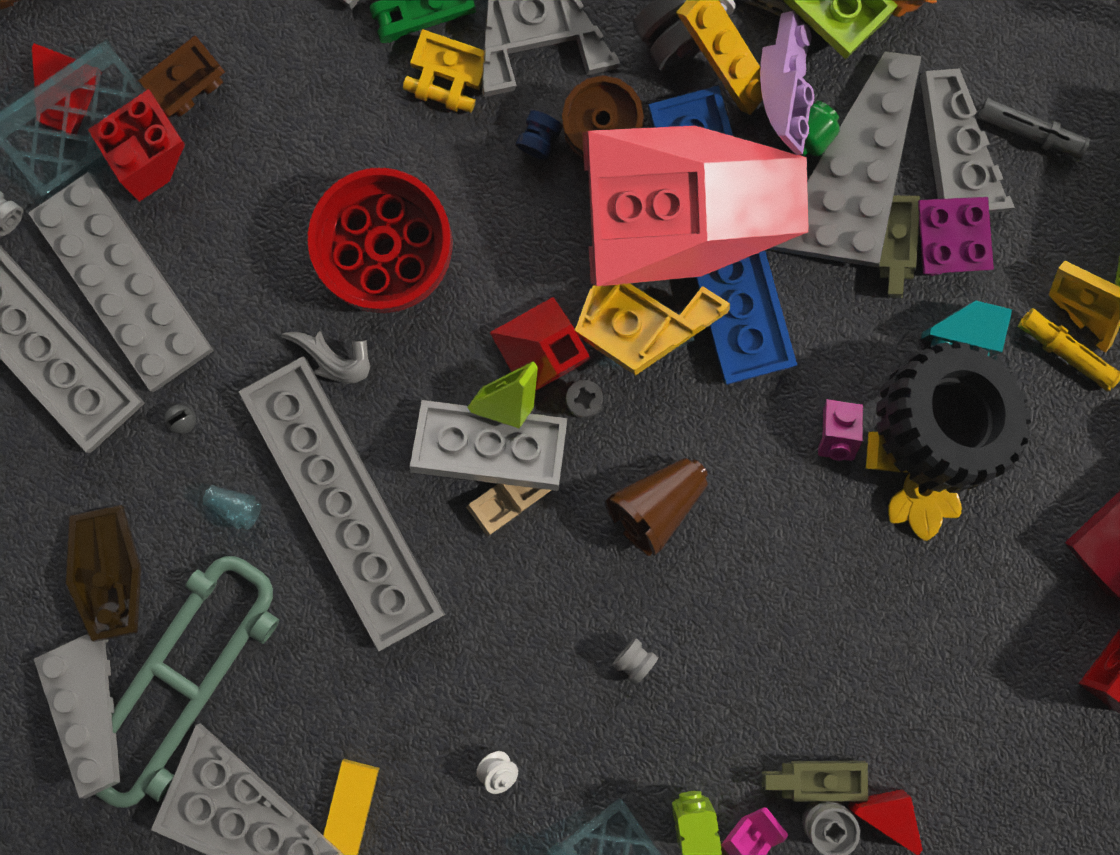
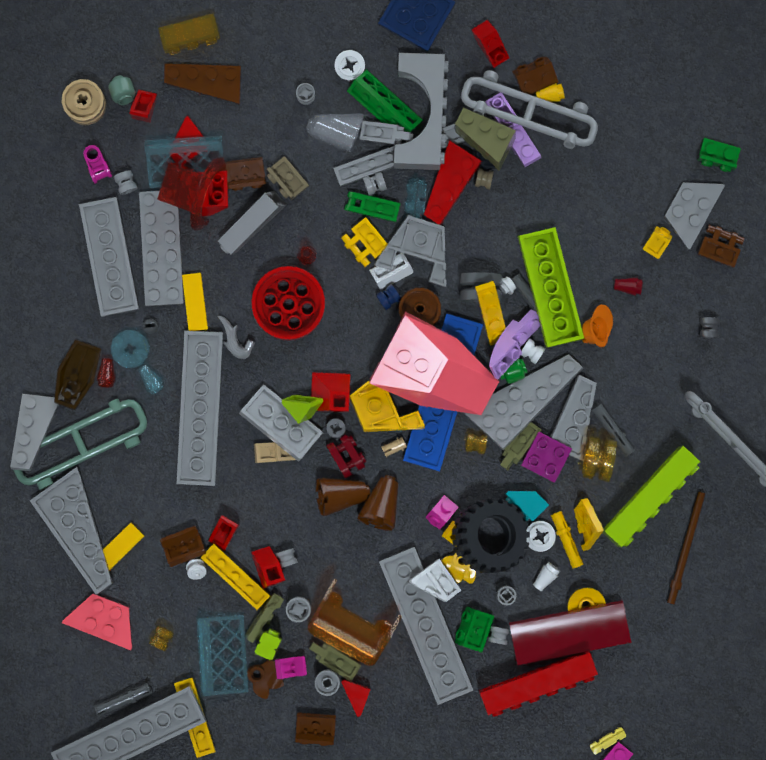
camera: 25 degrees right, 0 degrees up
(92, 152) = (188, 188): none -> clear red piece
(147, 476) = (124, 358): none -> clear light blue plate
(153, 542) = (106, 373): none -> clear red cone
(228, 335) = (195, 302): none -> yellow tile
(240, 148) = (252, 222): none -> light grey slope
(257, 45) = (288, 179): none -> dark tan bracket
(368, 153) = (306, 259): none -> clear red cone
(452, 748) = (183, 546): none -> reddish brown bracket
(505, 682) = (223, 532): none -> red slope
(513, 107) = (400, 270): none -> white slope
(570, 744) = (235, 576): none -> yellow plate
(614, 696) = (267, 567): none -> red slope
(619, 413) = (357, 458): none -> dark red brick
(657, 782) = (264, 616): none -> olive hinge
(697, 371) = (394, 446): none -> tan pin
(708, 735) = (298, 609): none -> light grey wheel
(737, 478) = (381, 505): none -> reddish brown cone
(817, 718) = (348, 631): none -> clear orange windscreen
(827, 284) = (476, 443): none -> clear yellow wheel
(829, 81) = (534, 352): none -> white wheel
(906, 548) = (436, 581): none -> white wing
(932, 631) = (426, 628): none -> light grey plate
(1012, 589) = (474, 629): none -> green bracket
(1023, 503) = (506, 595): none -> light grey wheel
(1038, 366) = (549, 538): none -> white gear
(1047, 183) = (600, 459): none -> clear yellow wheel
(1060, 573) = (498, 635): none -> light grey wheel
(1074, 429) = (546, 576): none -> white cone

